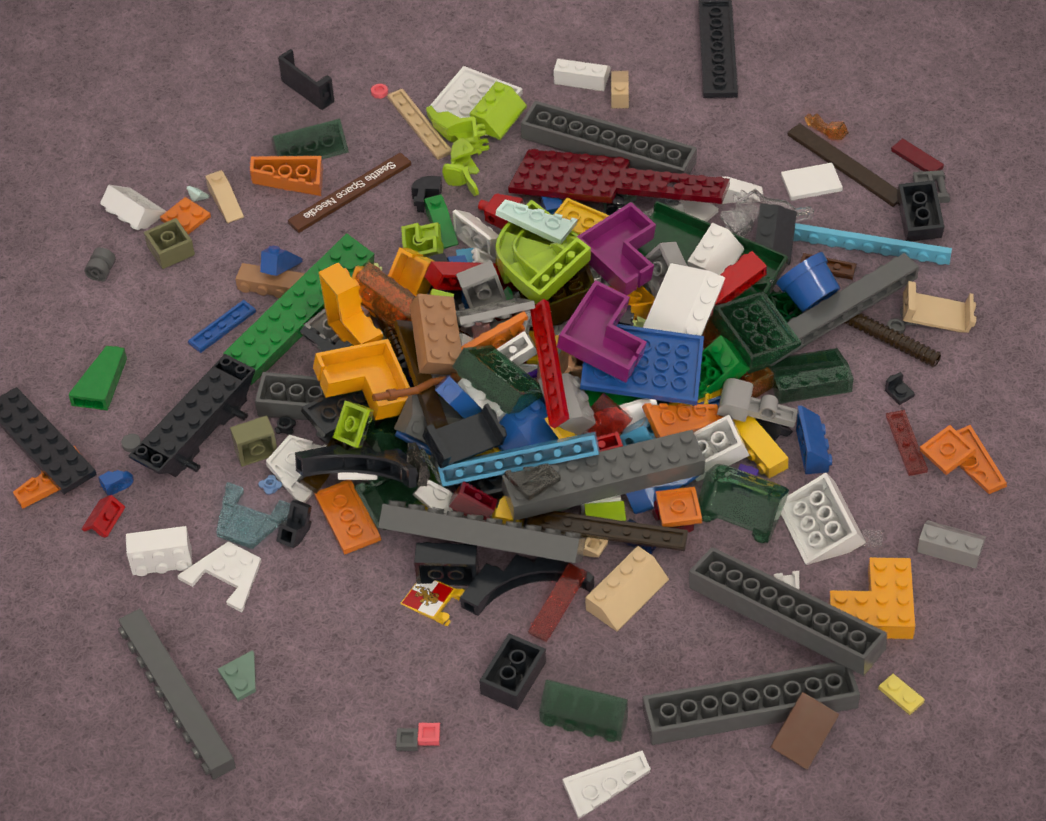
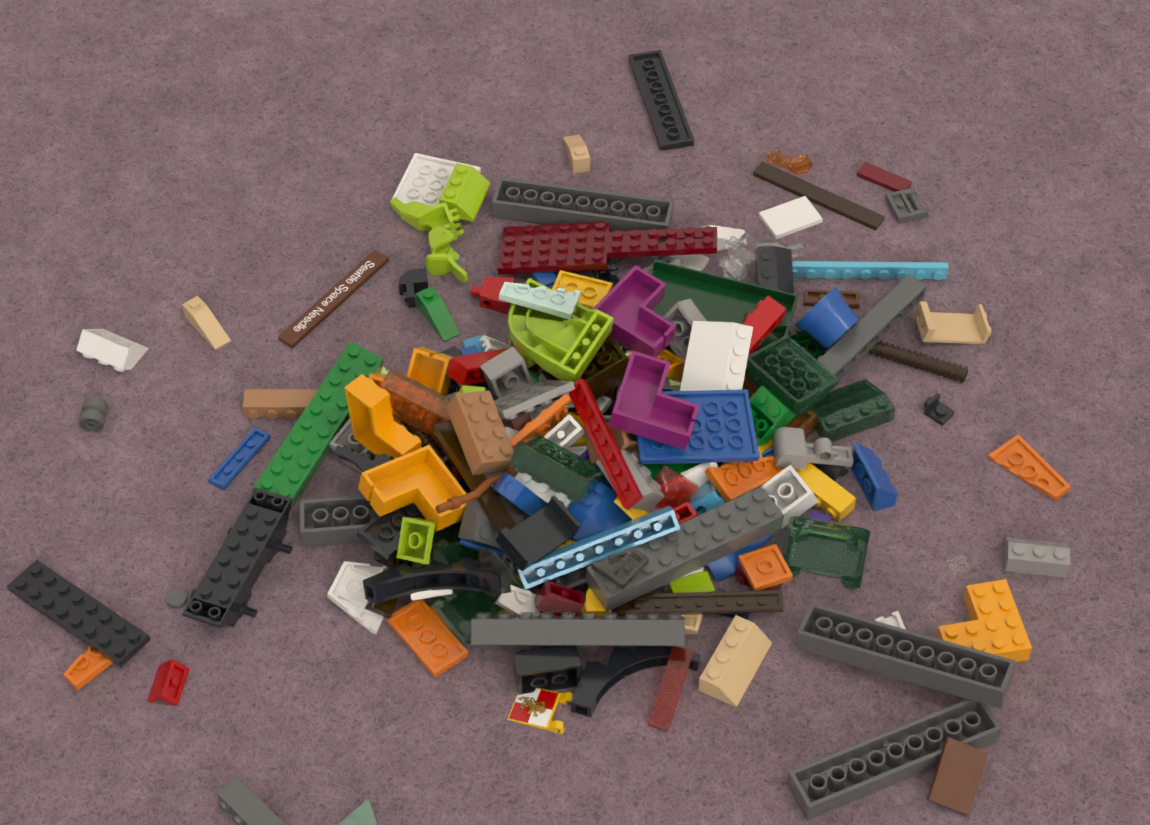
camera: 15 degrees left, 0 degrees up
(100, 380) = (126, 538): green slope -> none
(115, 481) = (171, 643): blue rock -> none
(159, 550) = (241, 710): white brick -> none
(169, 243) = (161, 380): olive brick -> none
(187, 213) = (169, 350): orange plate -> none
(196, 194) = (175, 325): light aqua slope -> none
(230, 565) = (320, 712): white wing -> none
(245, 524) = (324, 665): clear light blue wing -> none
(253, 440) = (309, 574): olive brick -> none
(269, 489) = (337, 622): medium blue plate -> none
(276, 261) = (283, 381): blue slope -> none
(285, 421) = (335, 547): black plate -> none
(289, 173) = (267, 288): orange wedge -> none
(296, 526) = (377, 655): black brick -> none
(317, 140) = (280, 255): clear green slope -> none
(318, 93) = (272, 201): black panel -> none
(379, 91) = (335, 190): coral tile -> none
(419, 124) = (386, 218): tan tile -> none
(423, 239) = (424, 334): lime brick -> none
(474, 232) = (478, 321): white slope -> none
(513, 671) = (646, 770): black brick -> none
(581, 74) = (534, 144): white slope -> none
(583, 711) = (731, 798): clear green slope -> none
(716, 250) = (728, 301): white slope -> none
(821, 521) = (905, 557): white slope -> none
(897, 325) = (915, 345): dark grey tile -> none
(901, 694) = (1035, 719): light yellow plate -> none
(906, 442) = (961, 462): clear red tile -> none
(920, 211) = (906, 230): black brick -> none
(948, 449) = (1005, 463): orange plate -> none

